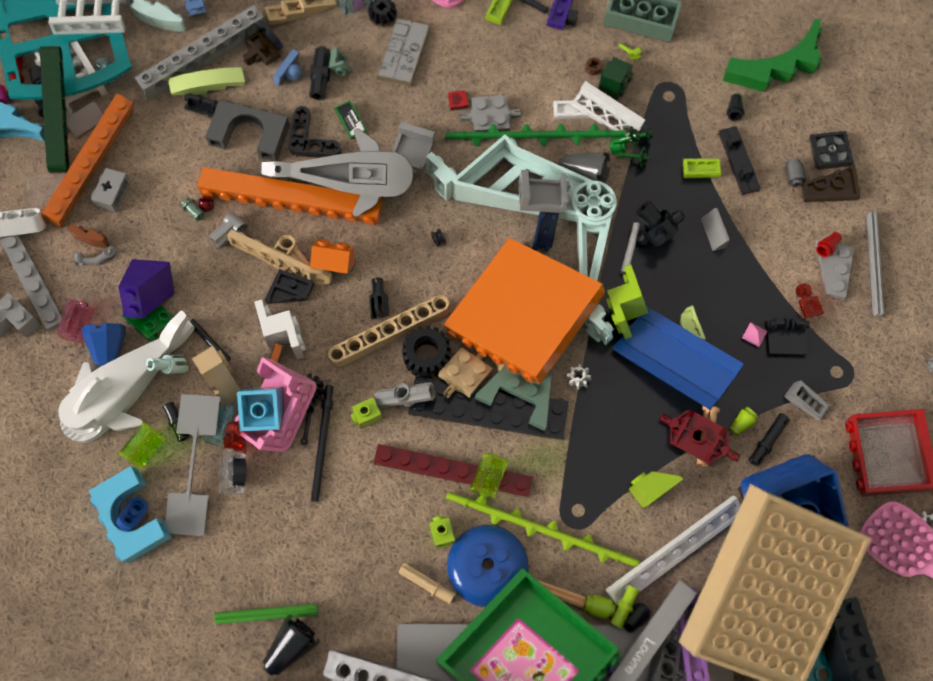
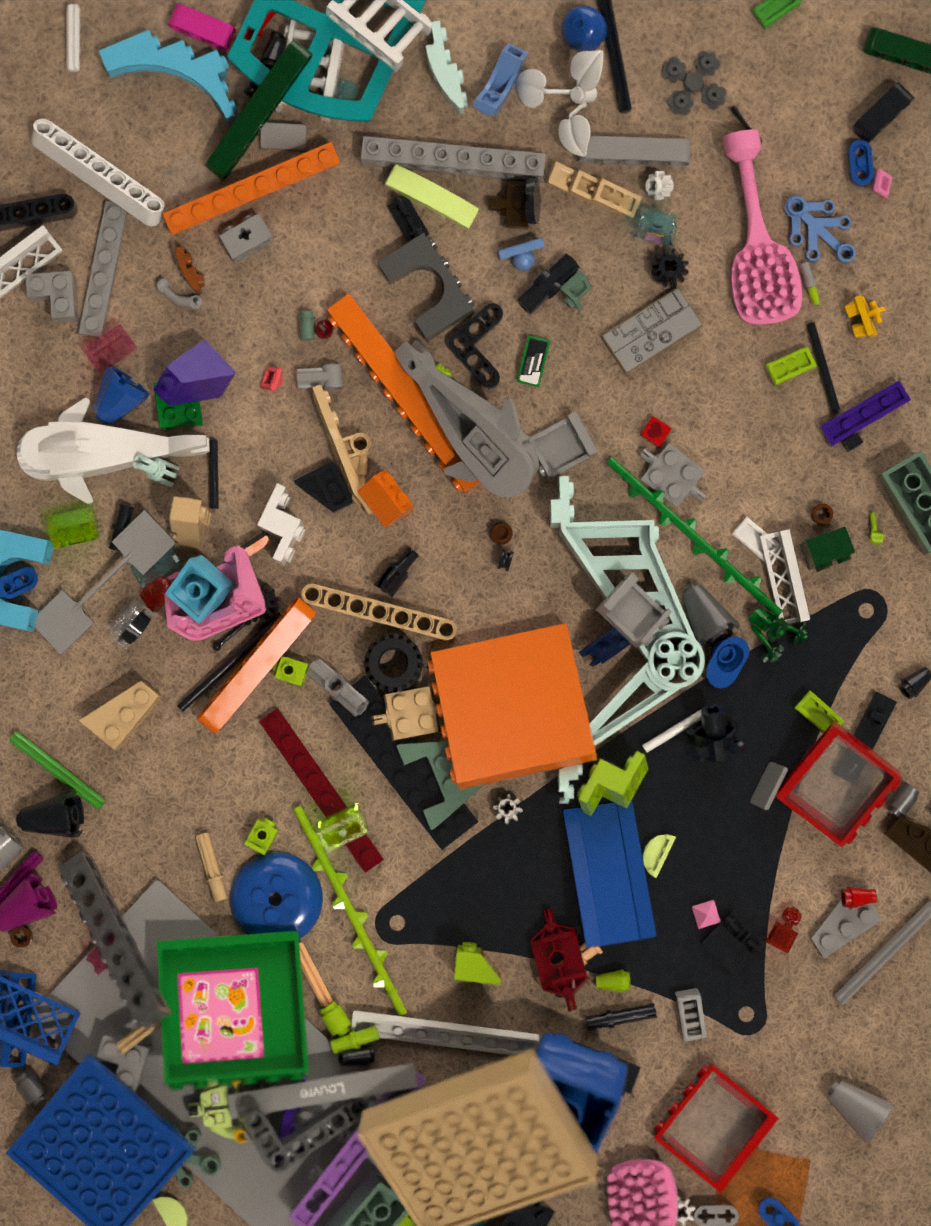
camera: 45 degrees right, 15 degrees up
(197, 255) = (272, 379): none -> coral slope
(278, 537) = (122, 715): none -> tan wedge
(340, 429) = (256, 665): none -> beam
(421, 226) = (501, 533): none -> reddish brown plate
(621, 181) = (726, 661): none -> blue piece
(754, 191) = (838, 784): none -> clear piece

